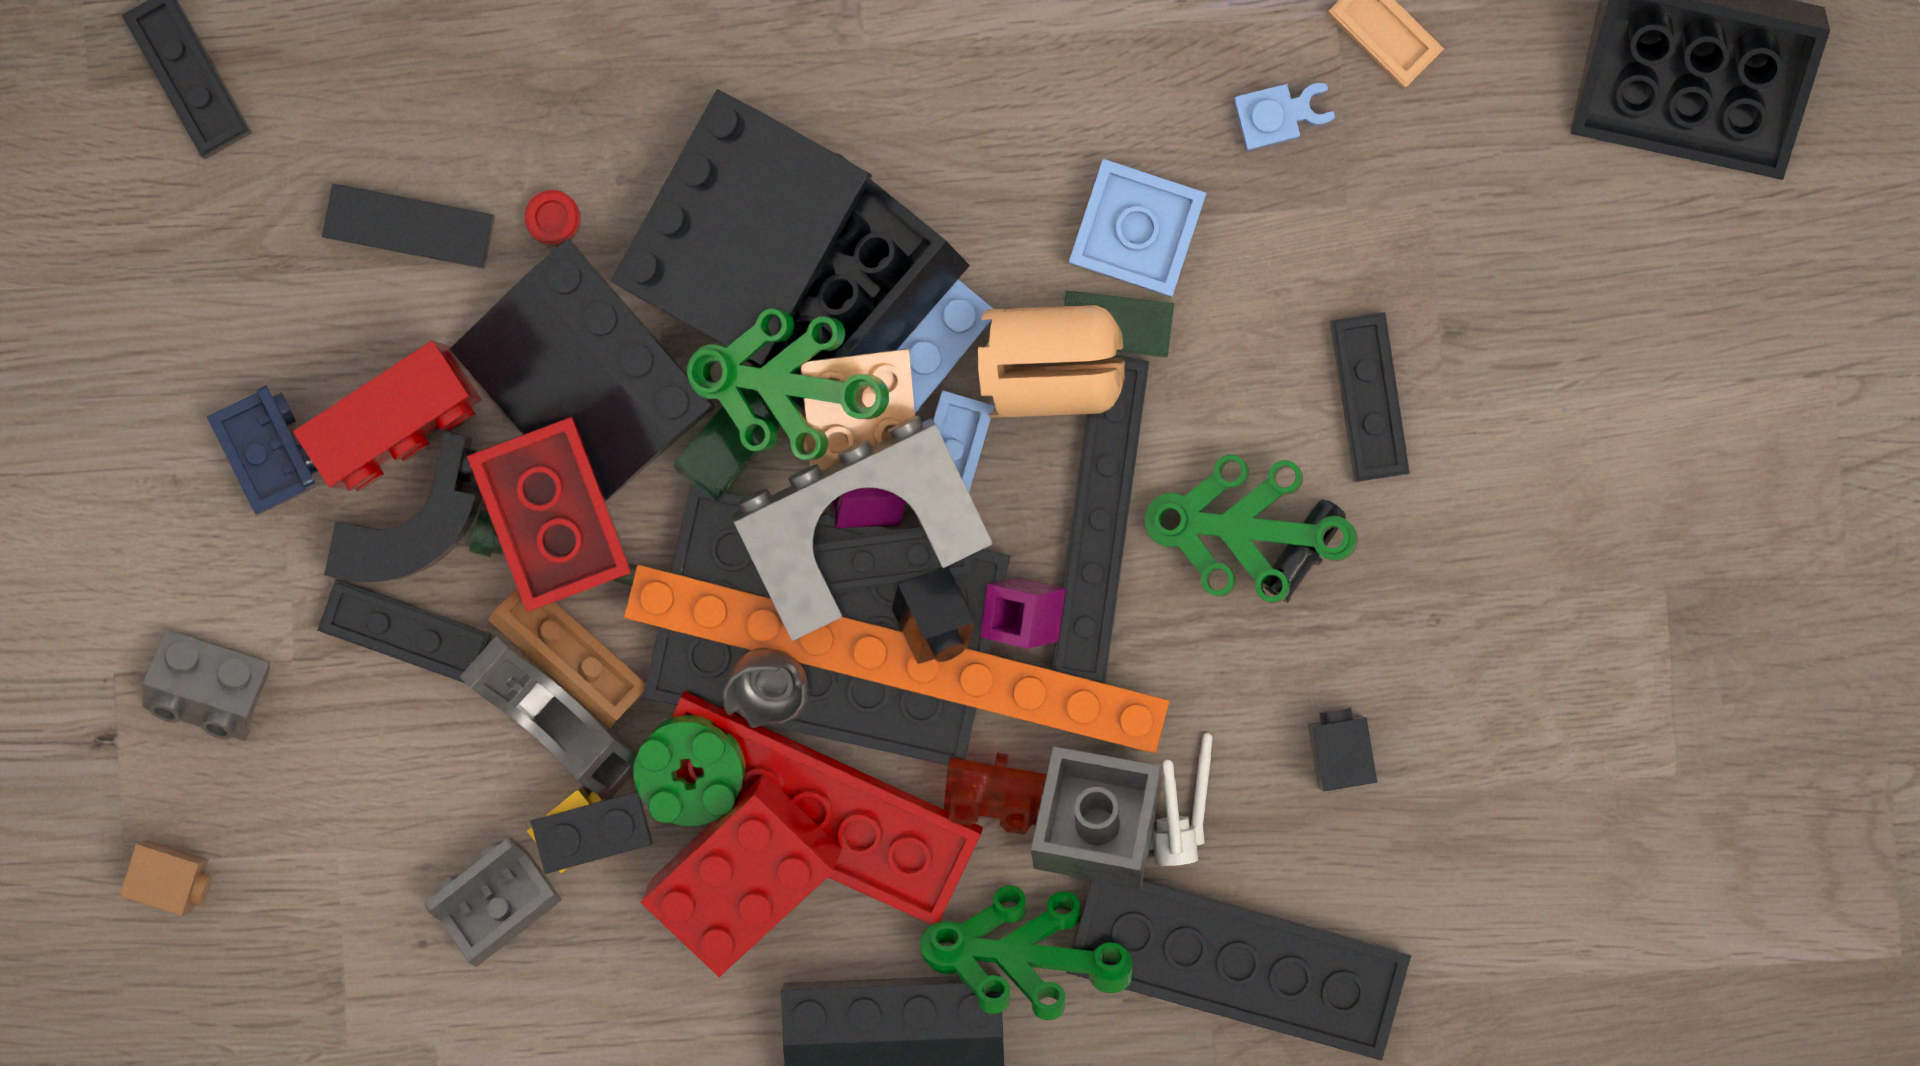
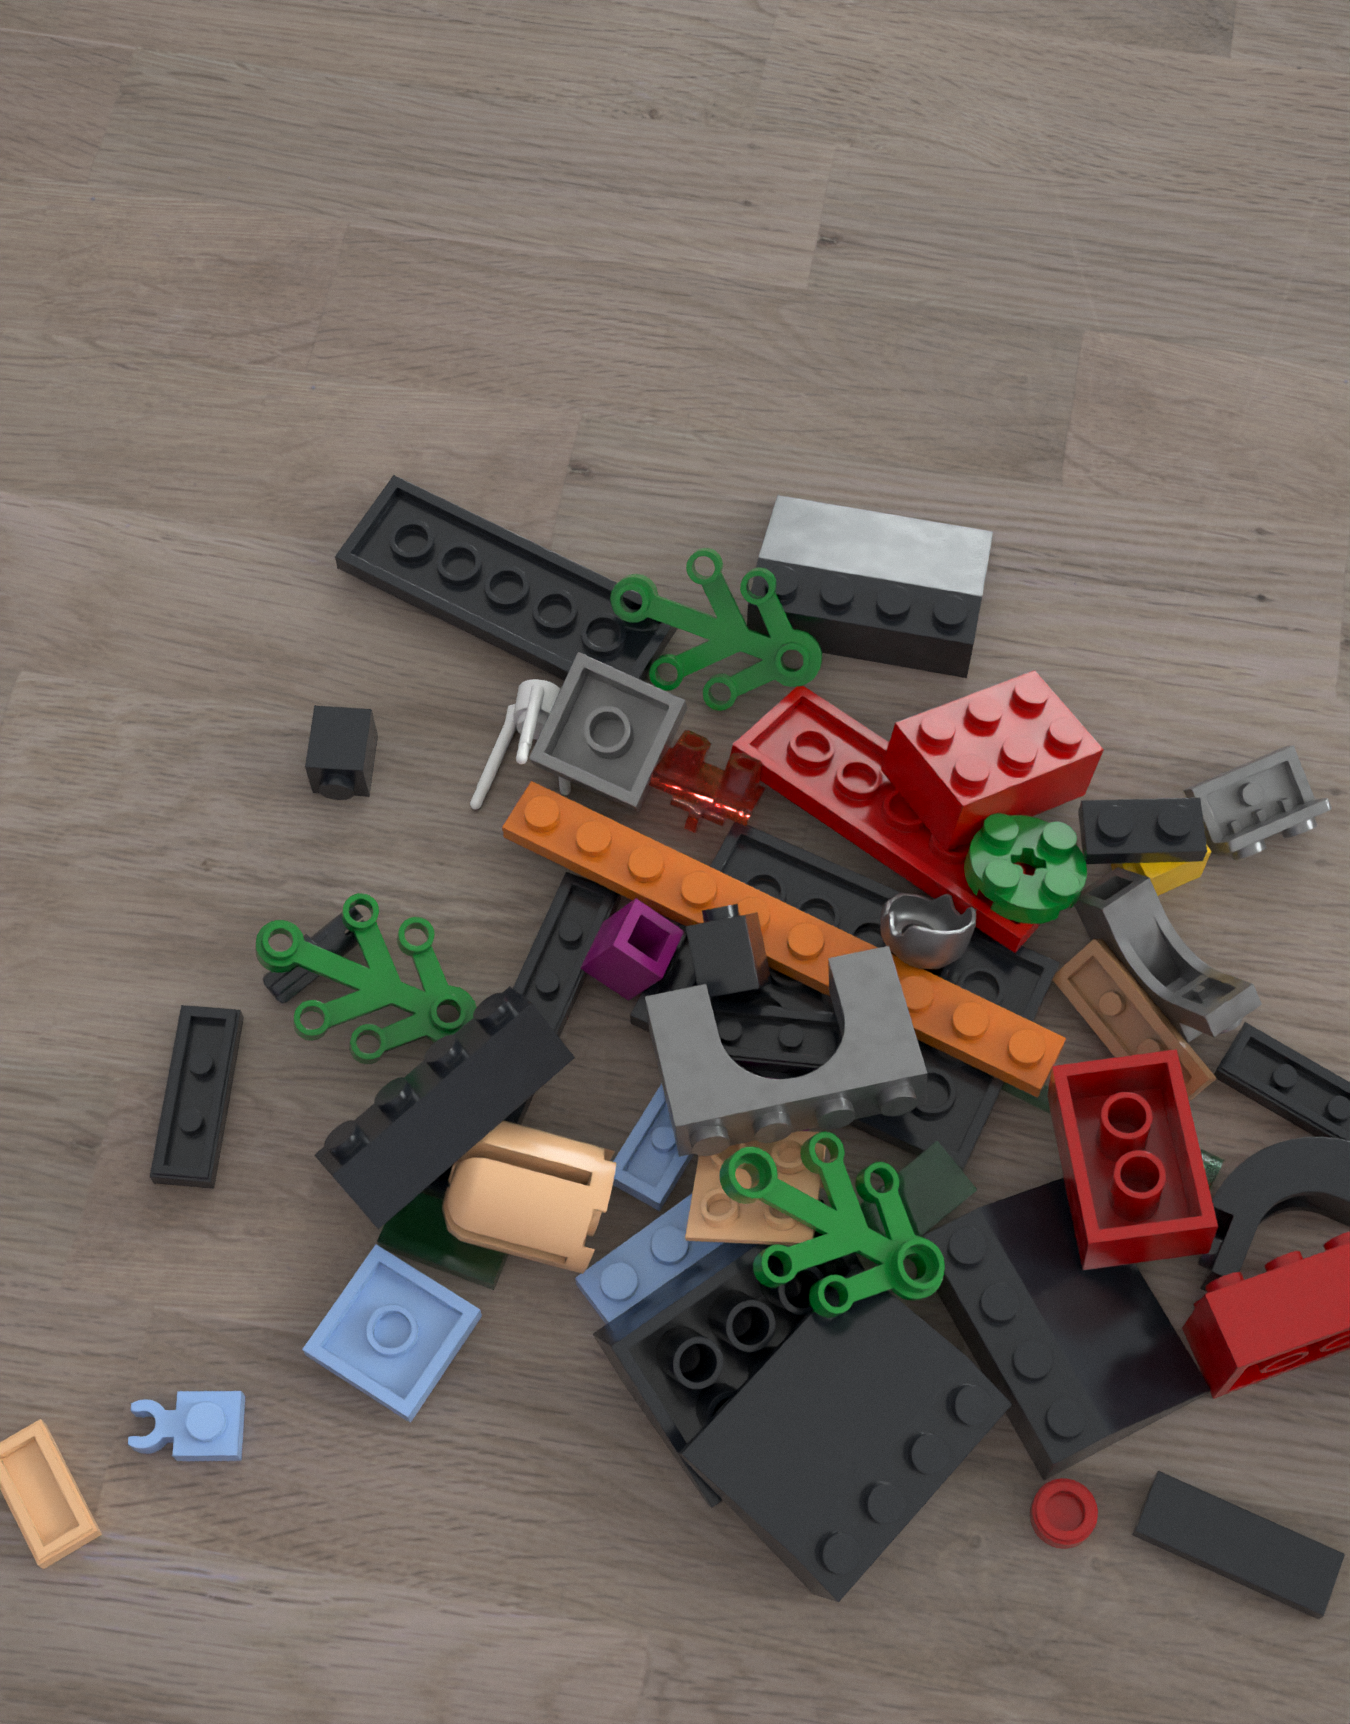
camera: 170 degrees left, 25 degrees down
(1145, 410) = (444, 1105): none -> black slope

